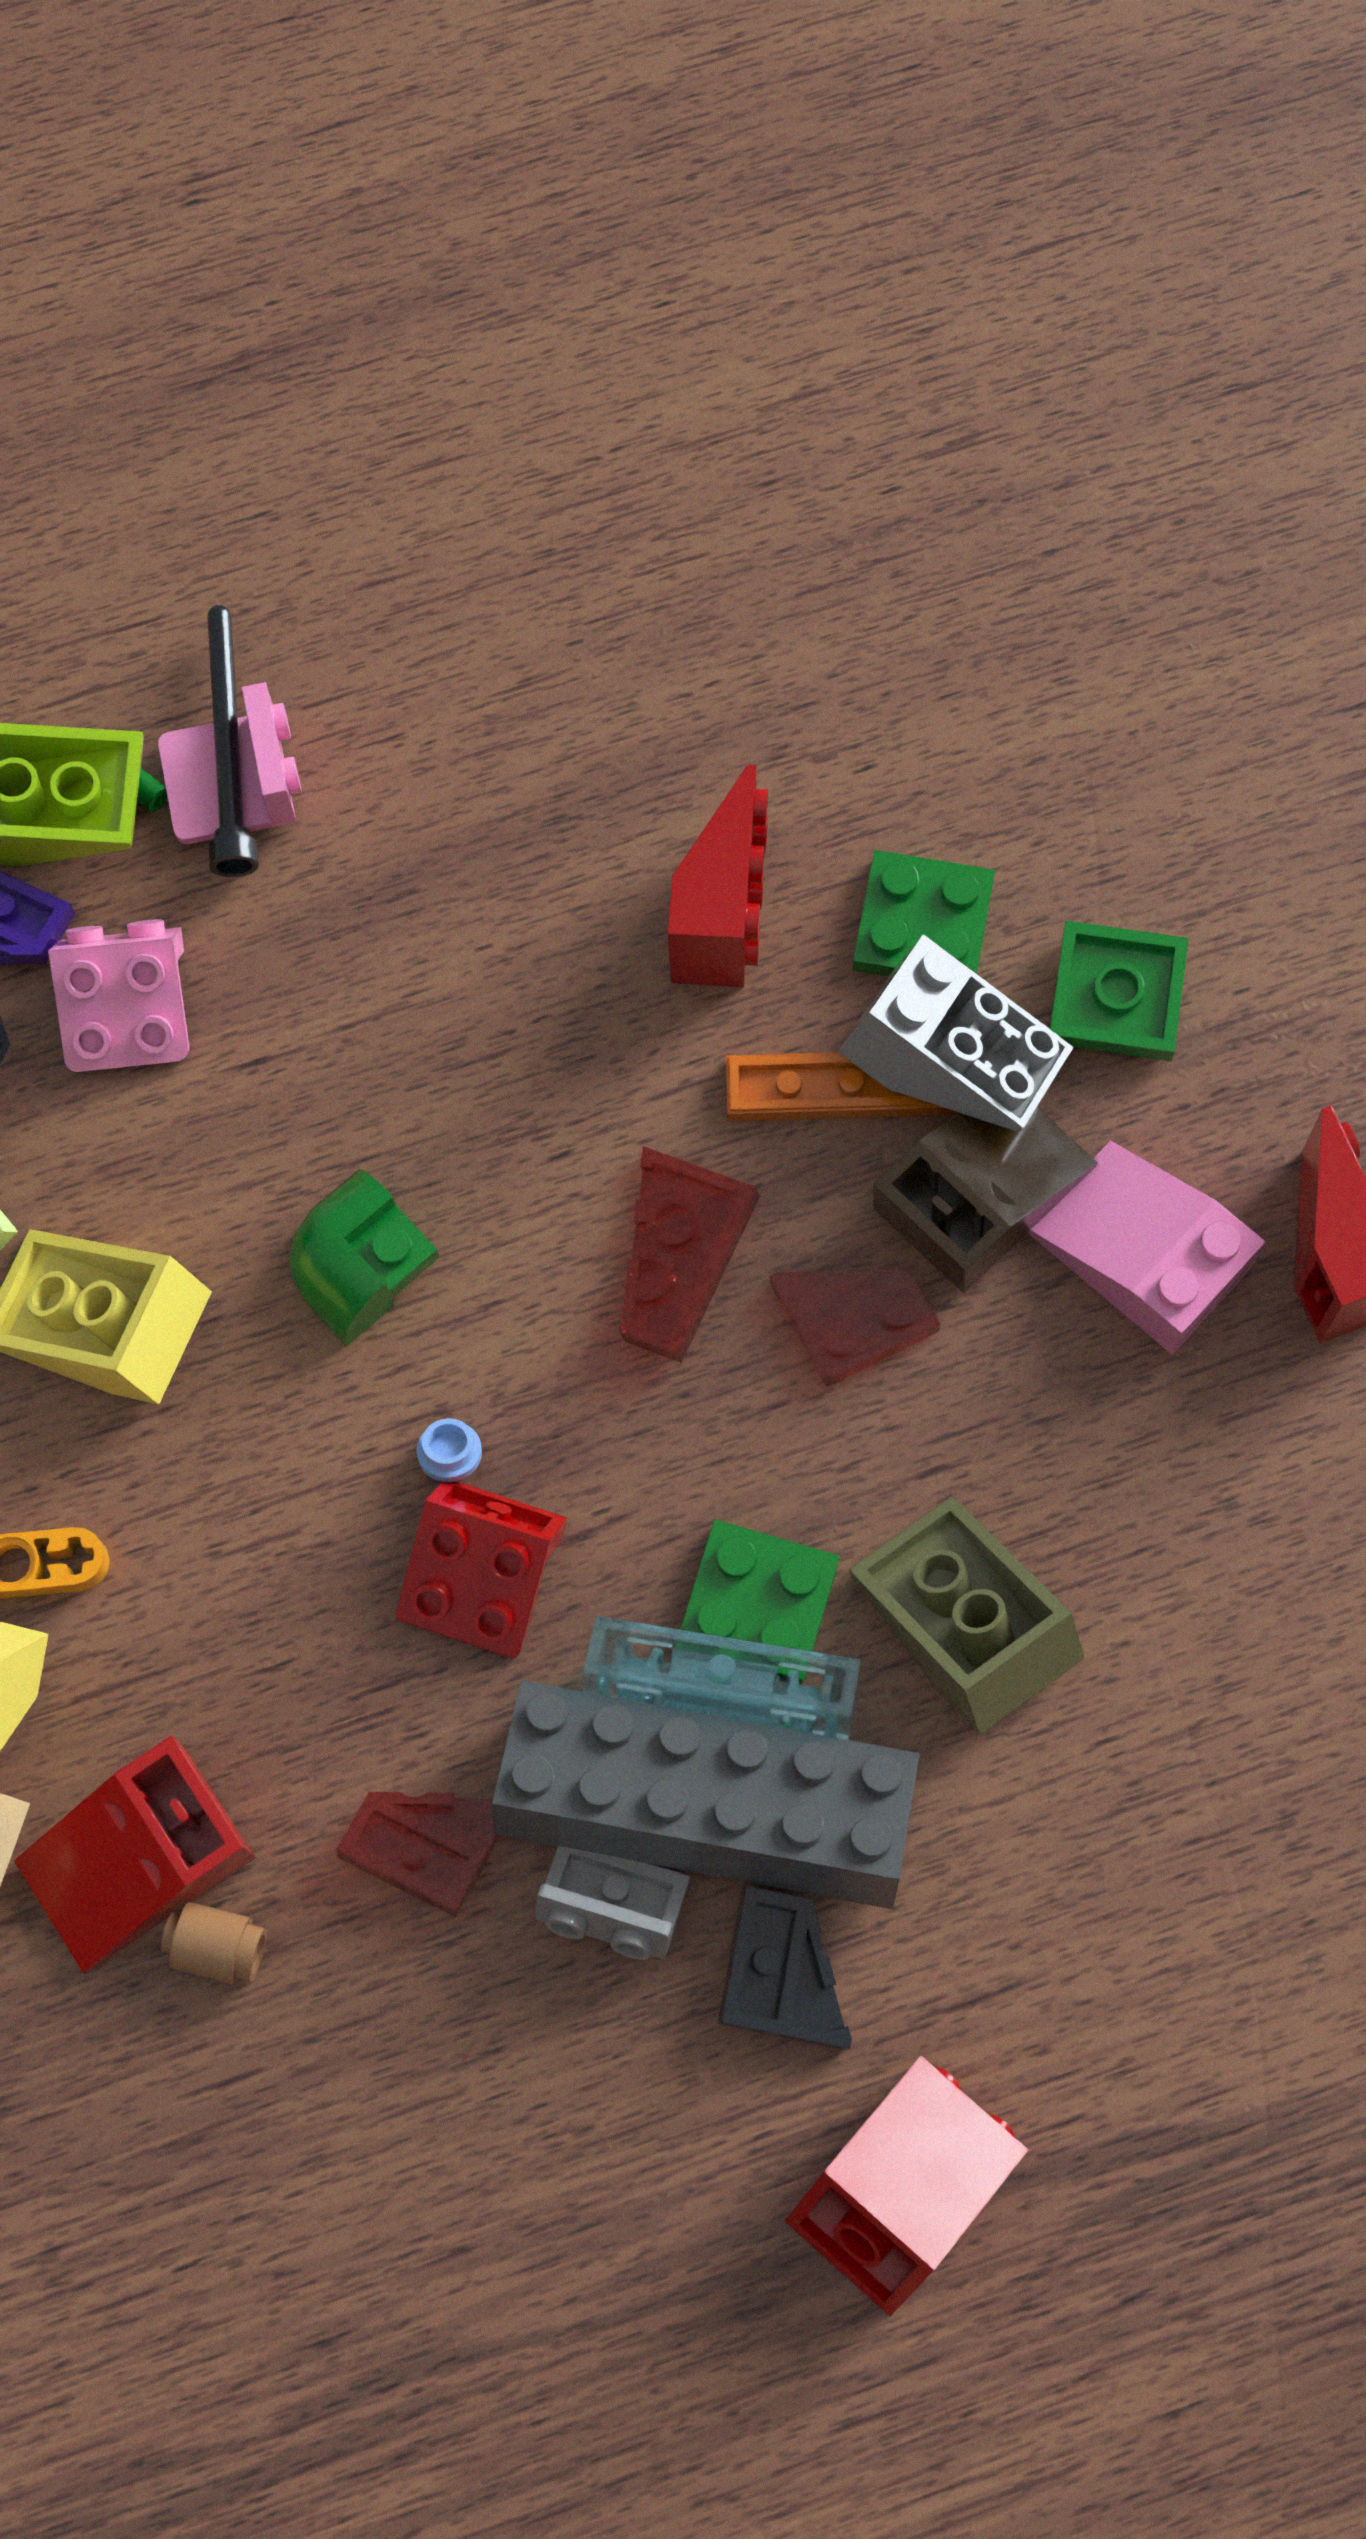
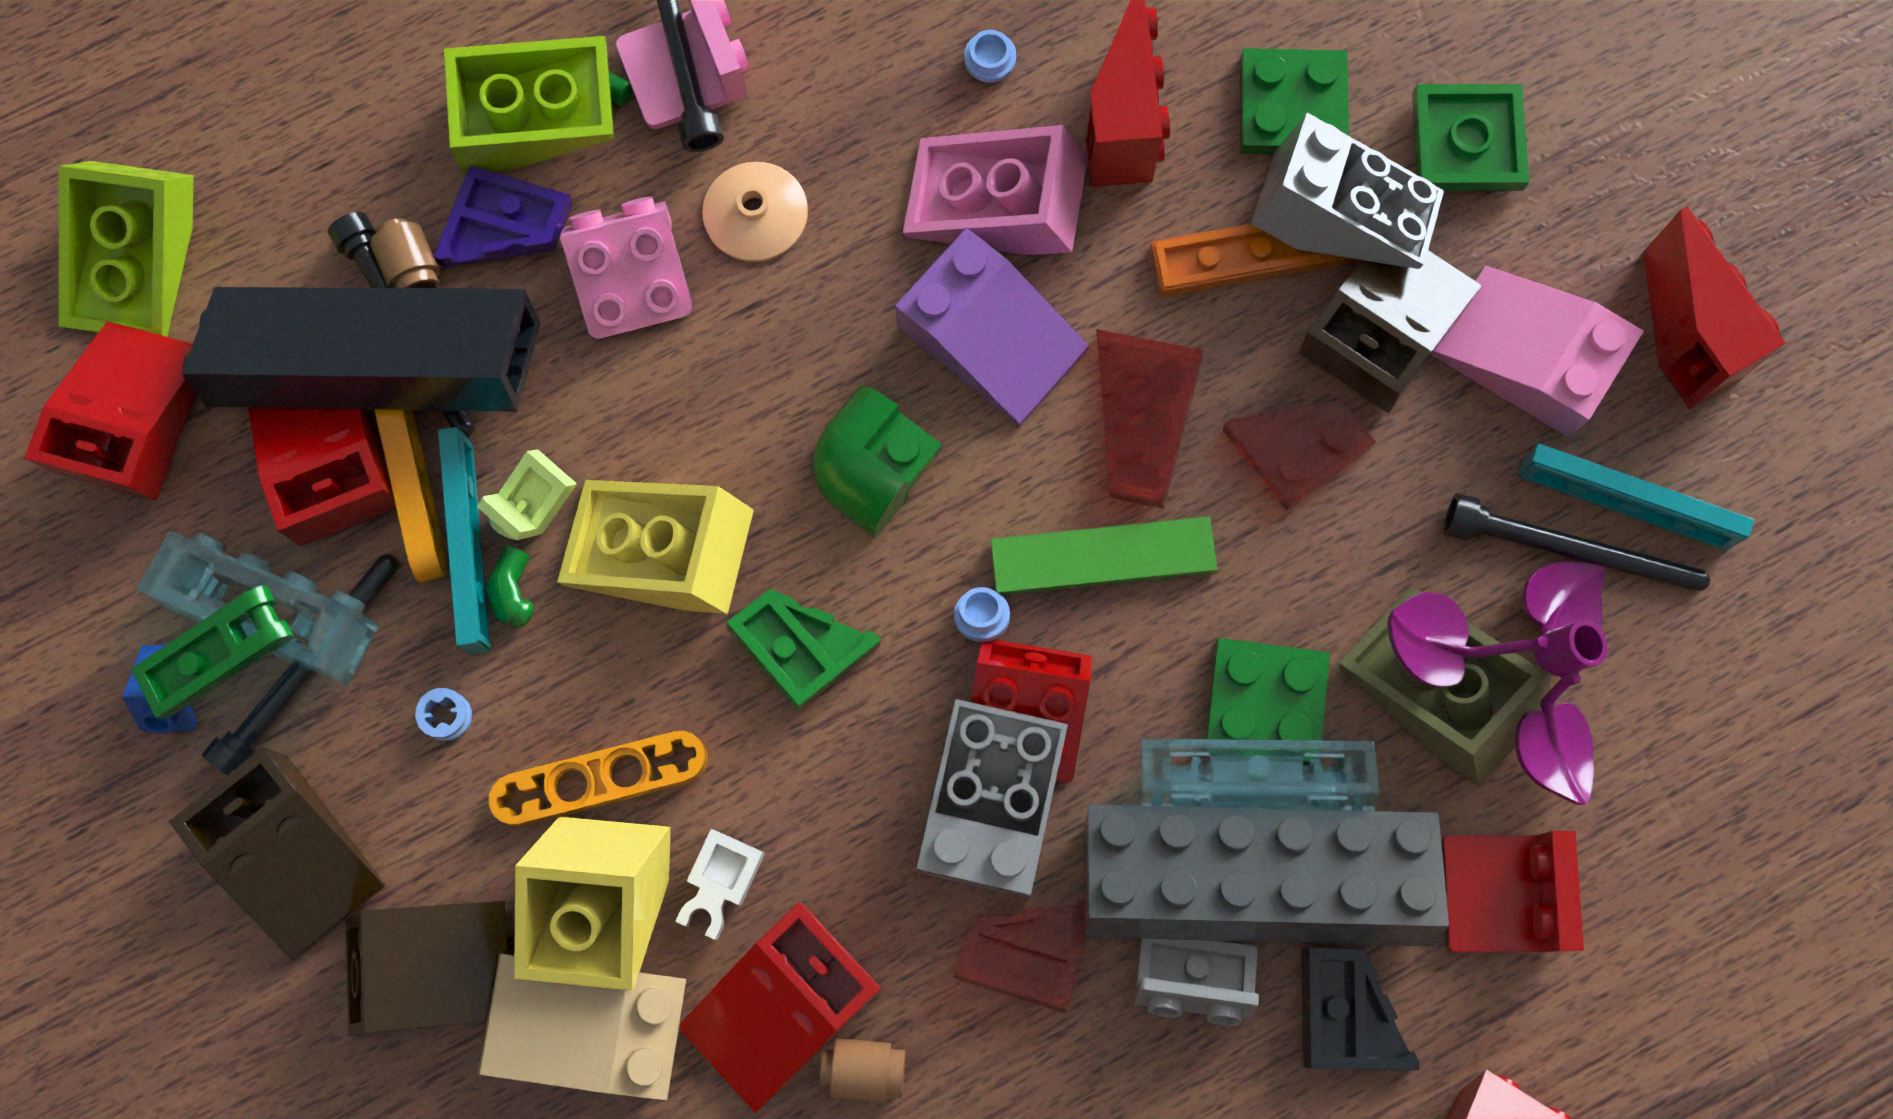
camera: 10 degrees left, 5 degrees up
(97, 1697) = (723, 874): none -> white plate
(233, 1453) = (798, 645): none -> green wing
(285, 978) = (757, 233): none -> light nougat dish
(415, 1661) = (992, 799): none -> light grey slope
(520, 1126) = (990, 327): none -> medium lavender slope
(561, 972) = (1005, 186): none -> bright pink slope
(582, 816) = (990, 56): none -> light blue plate
(601, 1406) = (1103, 556): none -> bright green tile
(991, 1863) = (1513, 893): none -> red bracket
(1035, 1430) = (1470, 519): none -> black piece
(1126, 1557) = (1566, 600): none -> magenta plant
(1227, 1433) = (1635, 497): none -> teal tile

